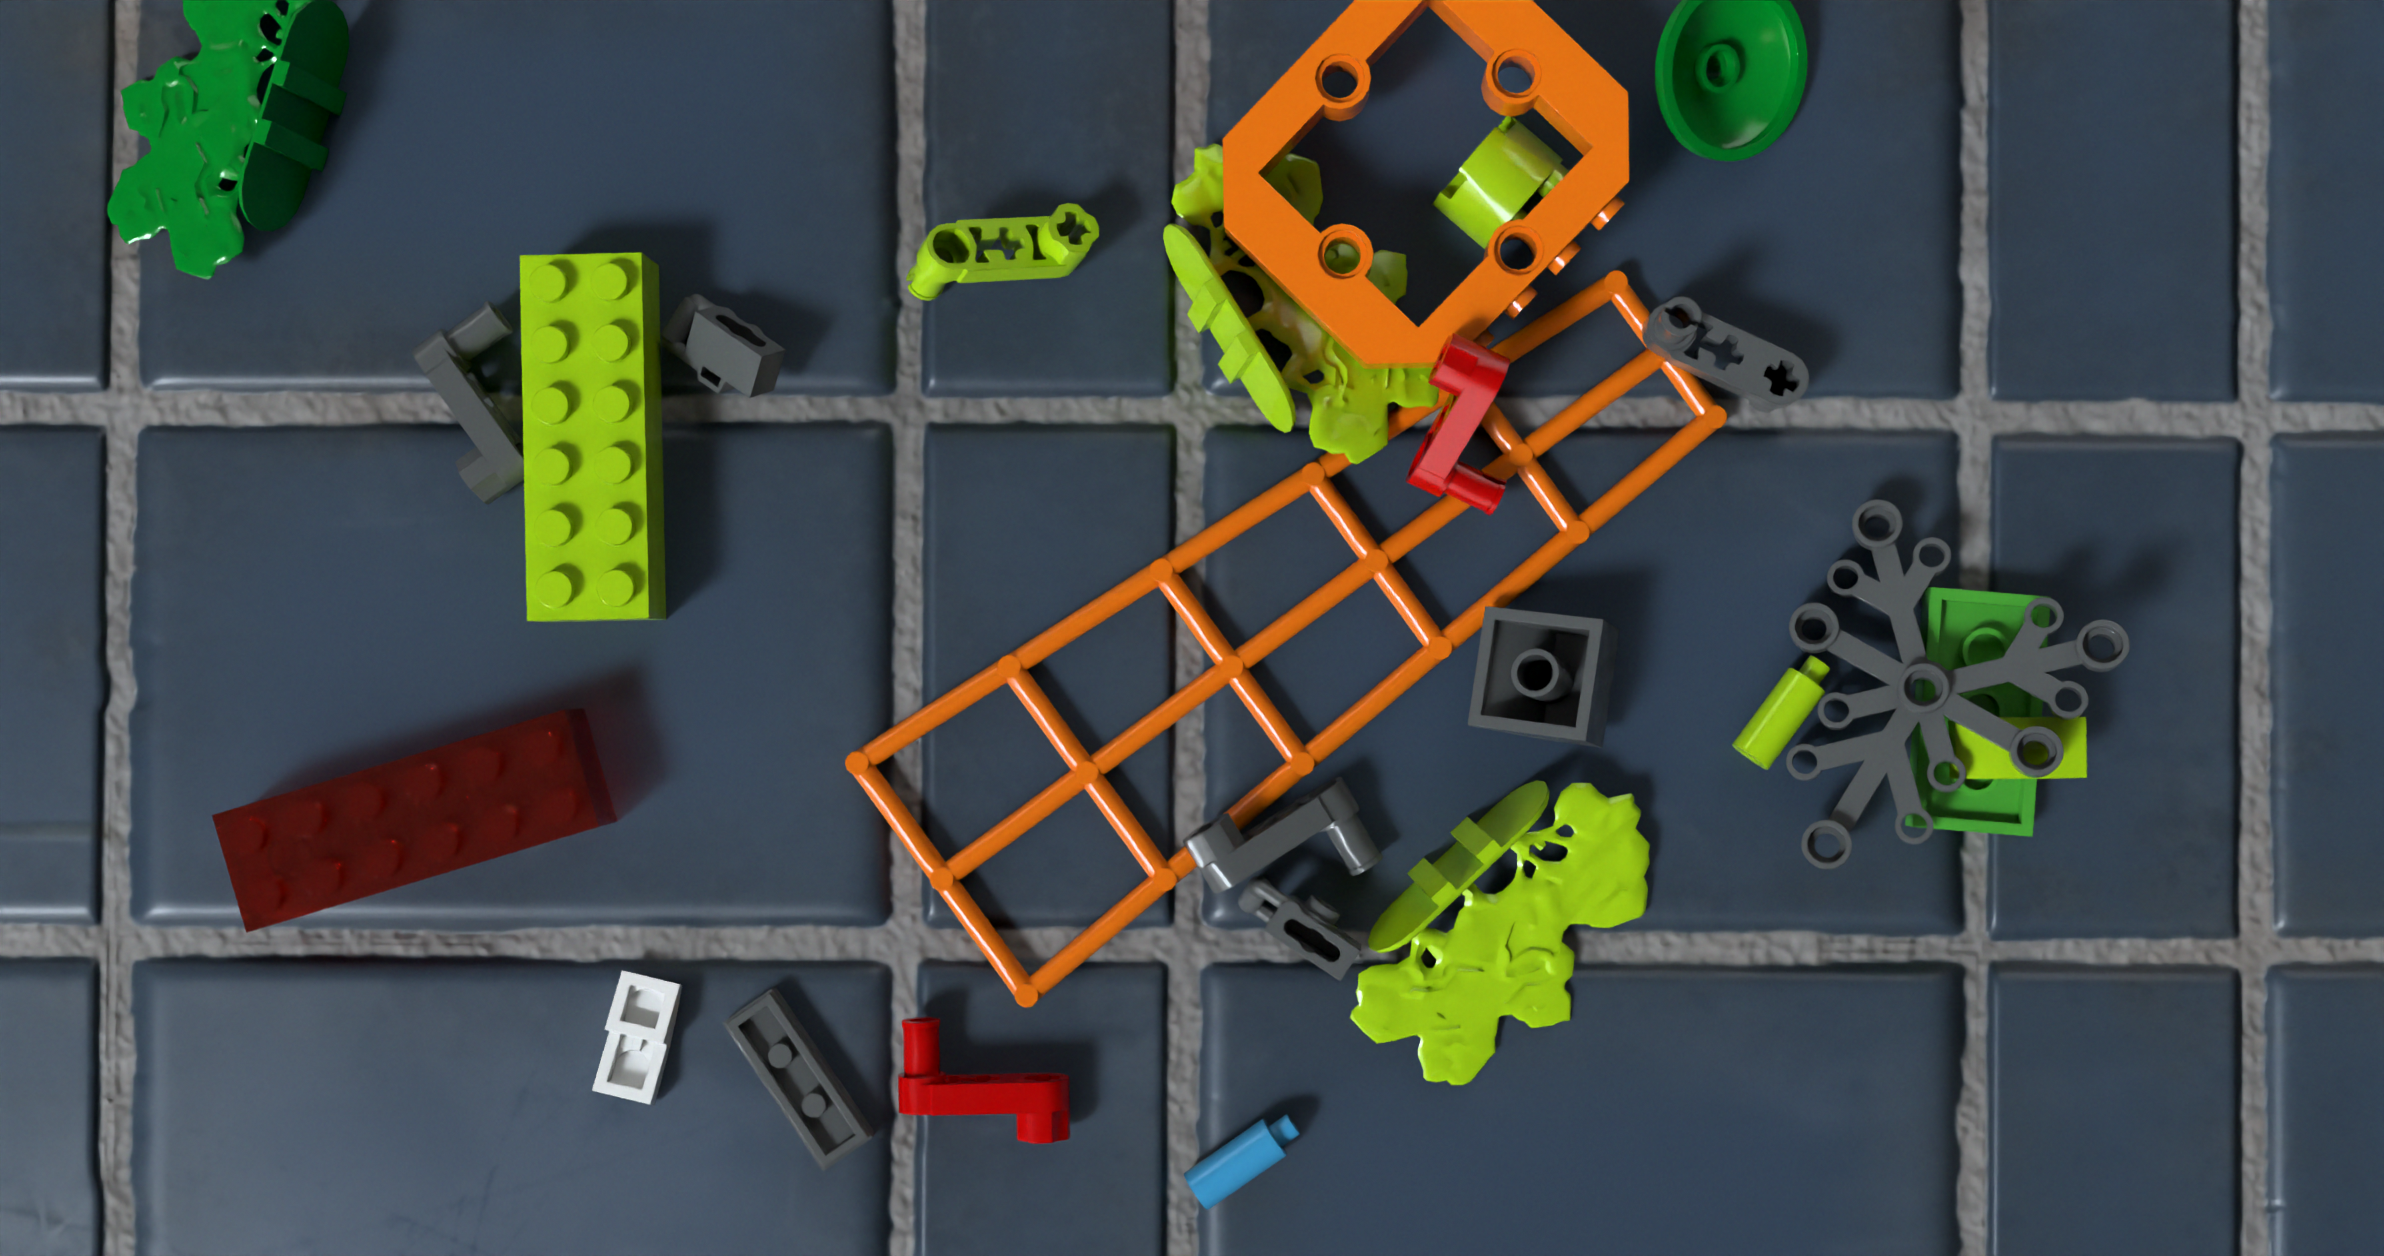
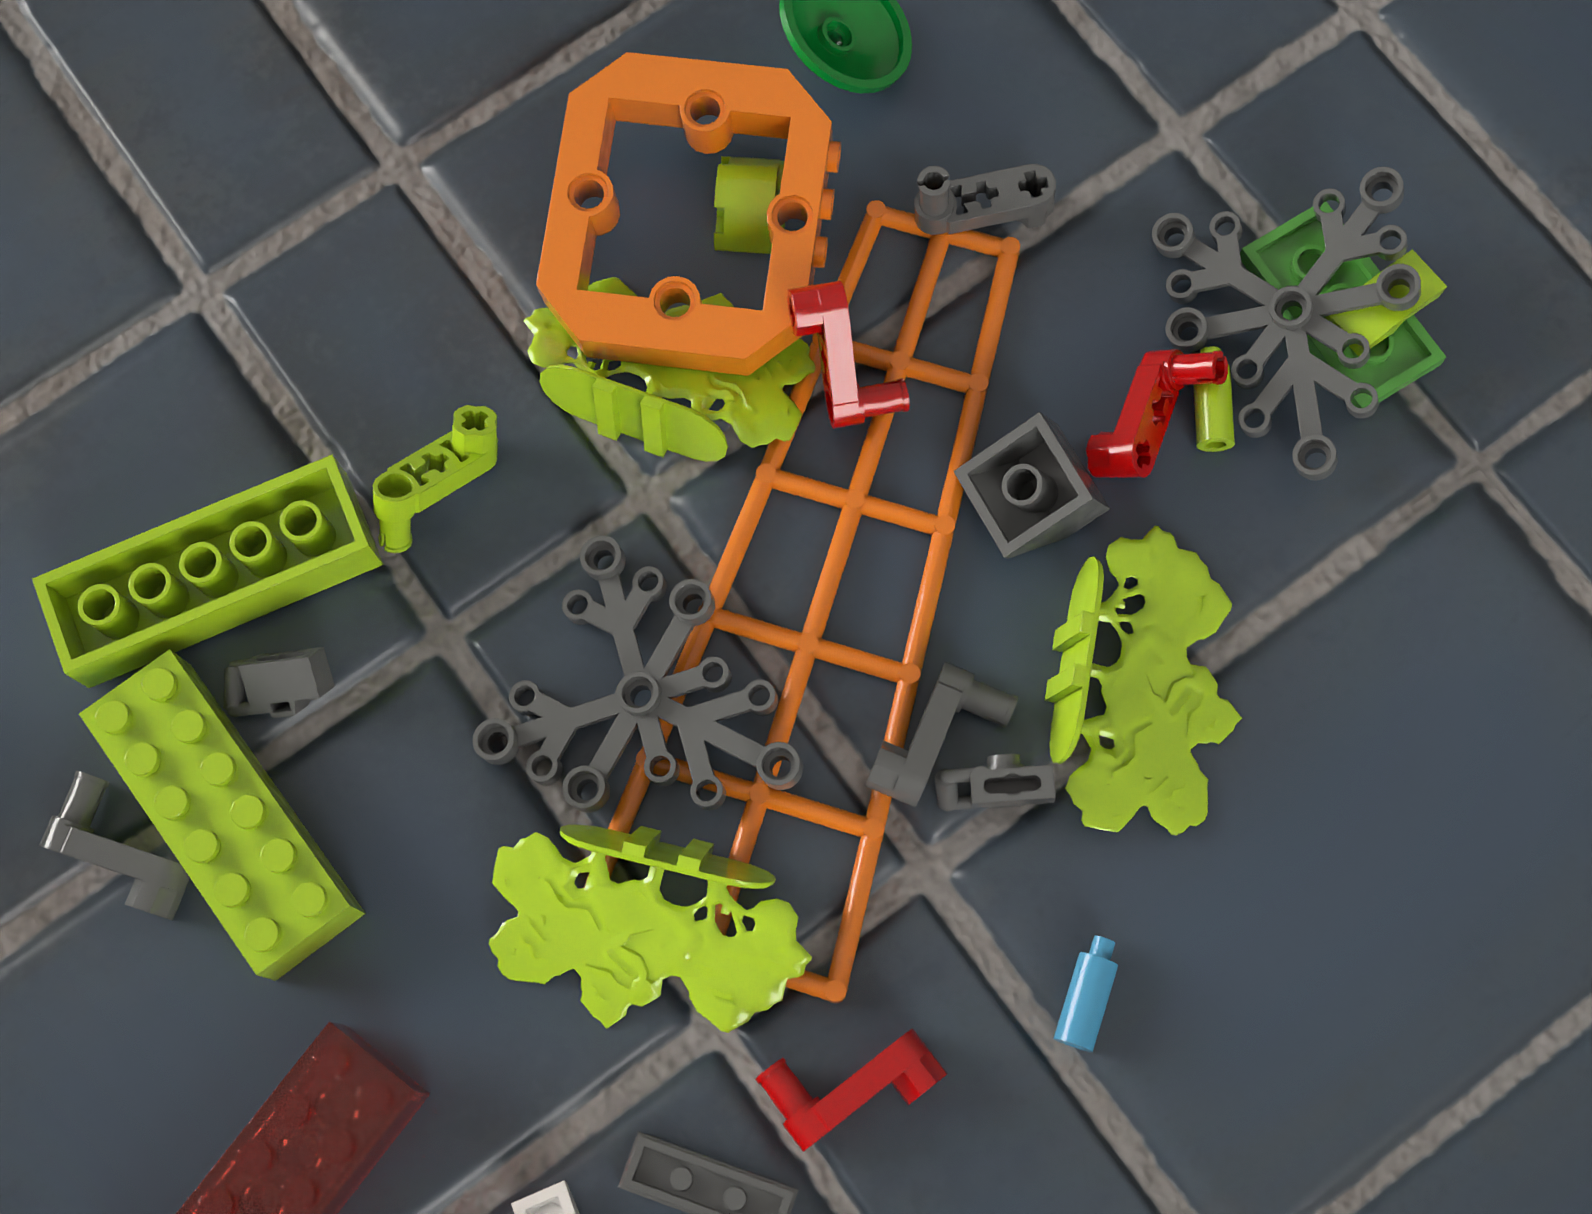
camera: 30 degrees left, 15 degrees down
(727, 194) = (206, 572): none -> lime brick
(881, 821) = (631, 937): none -> lime plant
(1072, 672) = (695, 723): none -> dark grey plant
(1671, 705) = (1148, 409): none -> red beam

